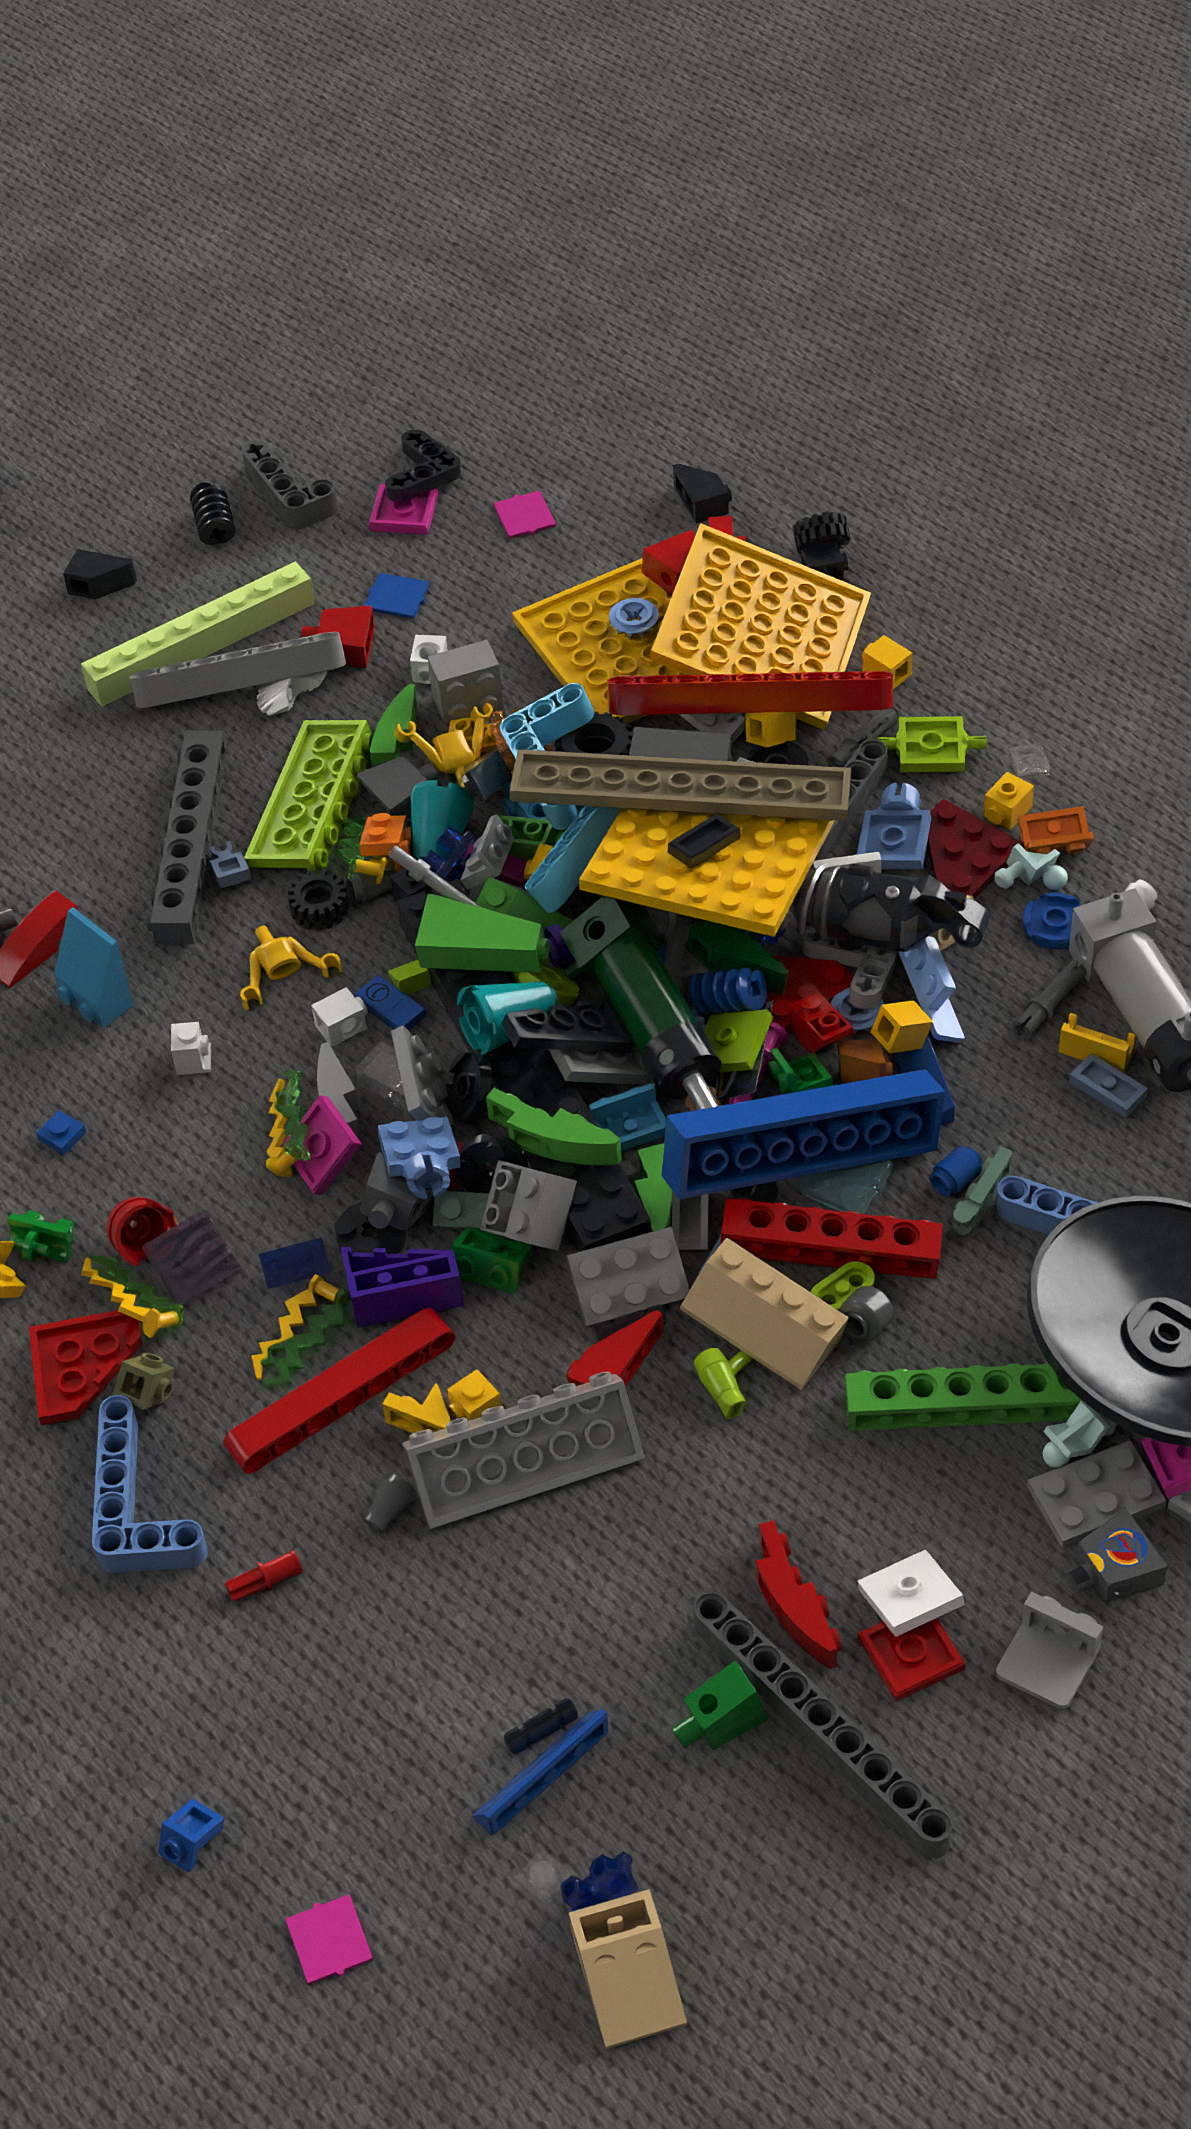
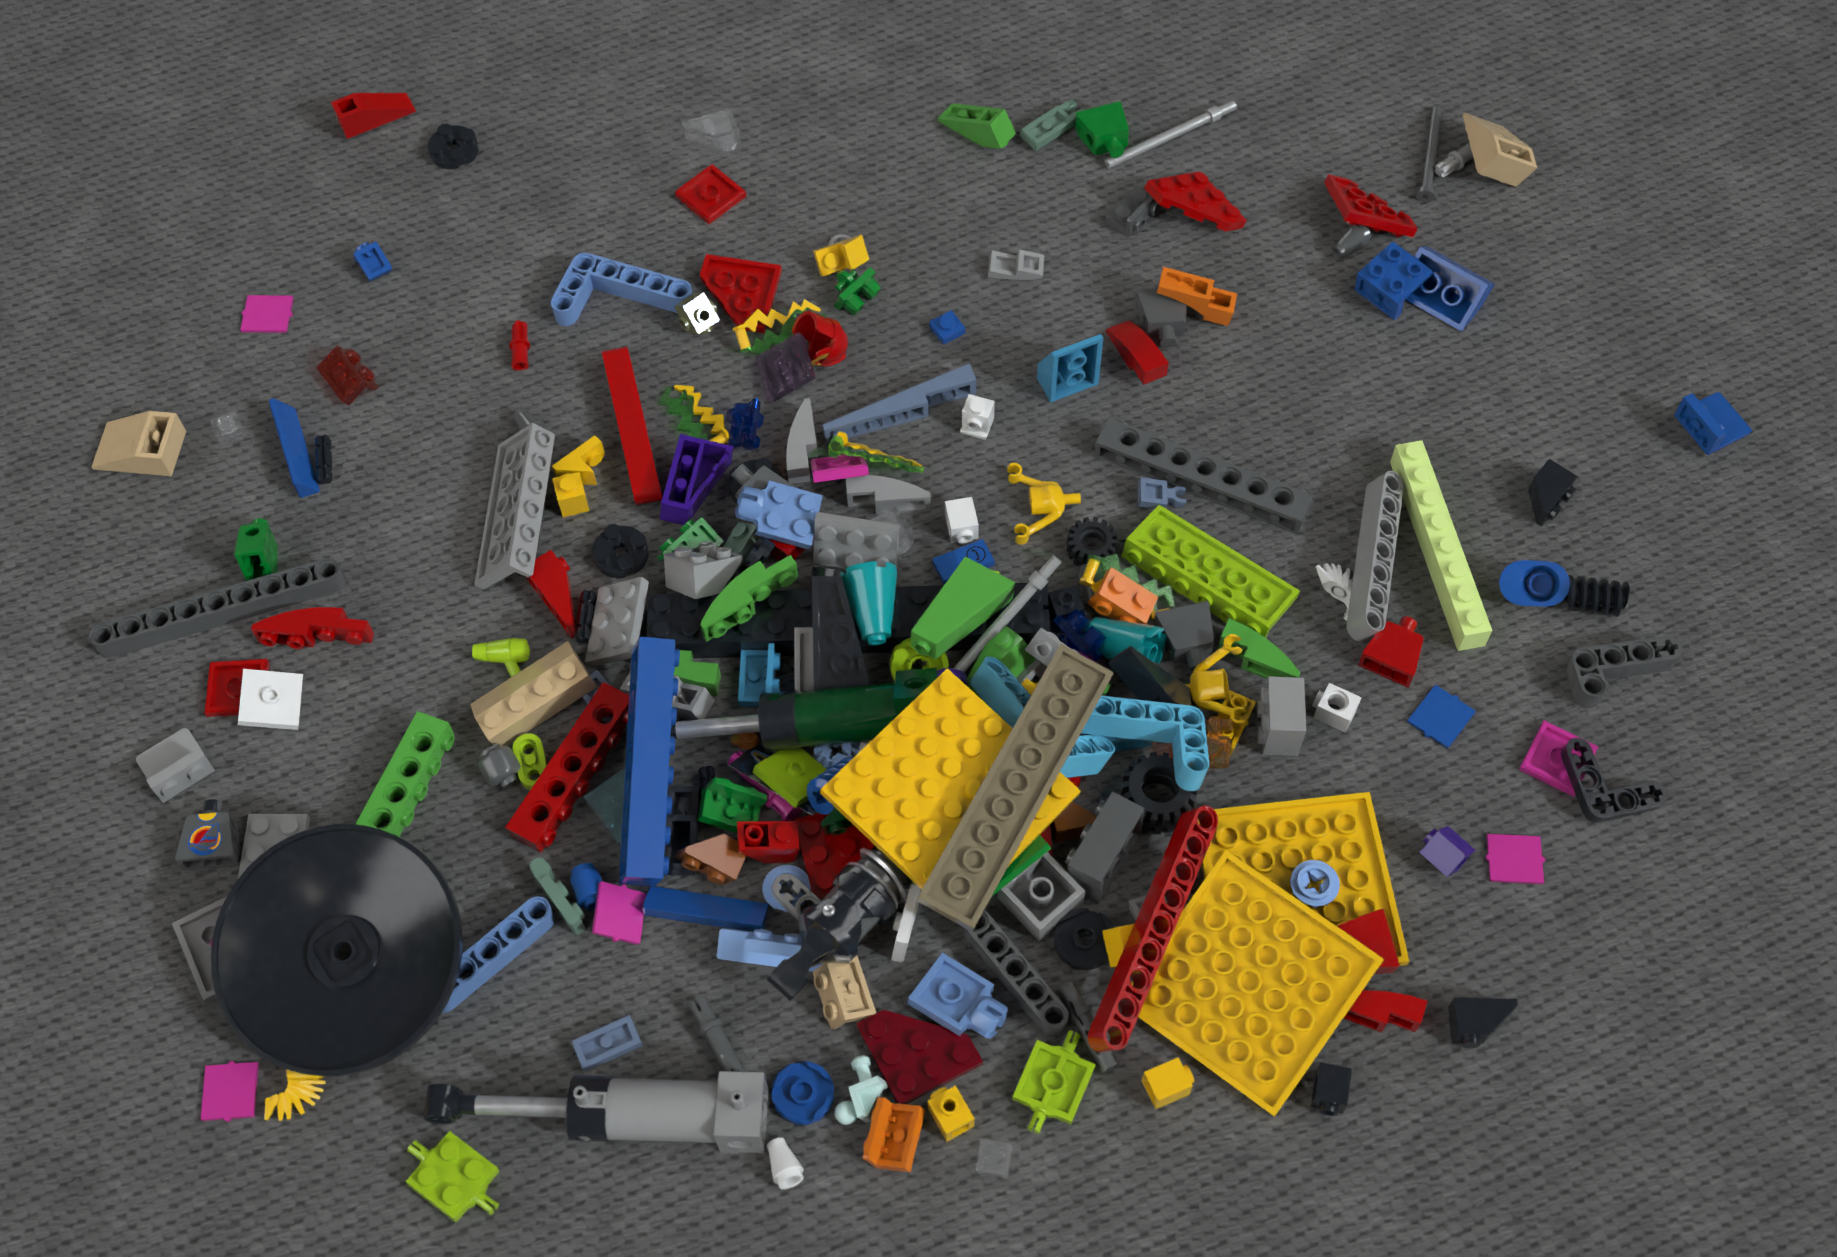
camera: 110 degrees right, 10 degrees up
(199, 1122) = (906, 405): none -> sand blue slope
(219, 552) = (1534, 583): none -> blue piece
(295, 1202) = (801, 445): none -> light grey slope
(398, 1762) = (346, 374): none -> clear red bracket
(521, 1310) = (616, 537): none -> black plate
(548, 545) = (1446, 850): none -> brick
(606, 1882) = (190, 445): clear blue hips -> none
(703, 841) = (941, 774): black tile -> none
(821, 529) = (1364, 1096): black tyre -> none
(901, 1026) = (728, 894): yellow brick -> none
(971, 1129) = (619, 913): none -> dark pink piece
(1081, 1042) = (652, 1053): yellow hinge -> none

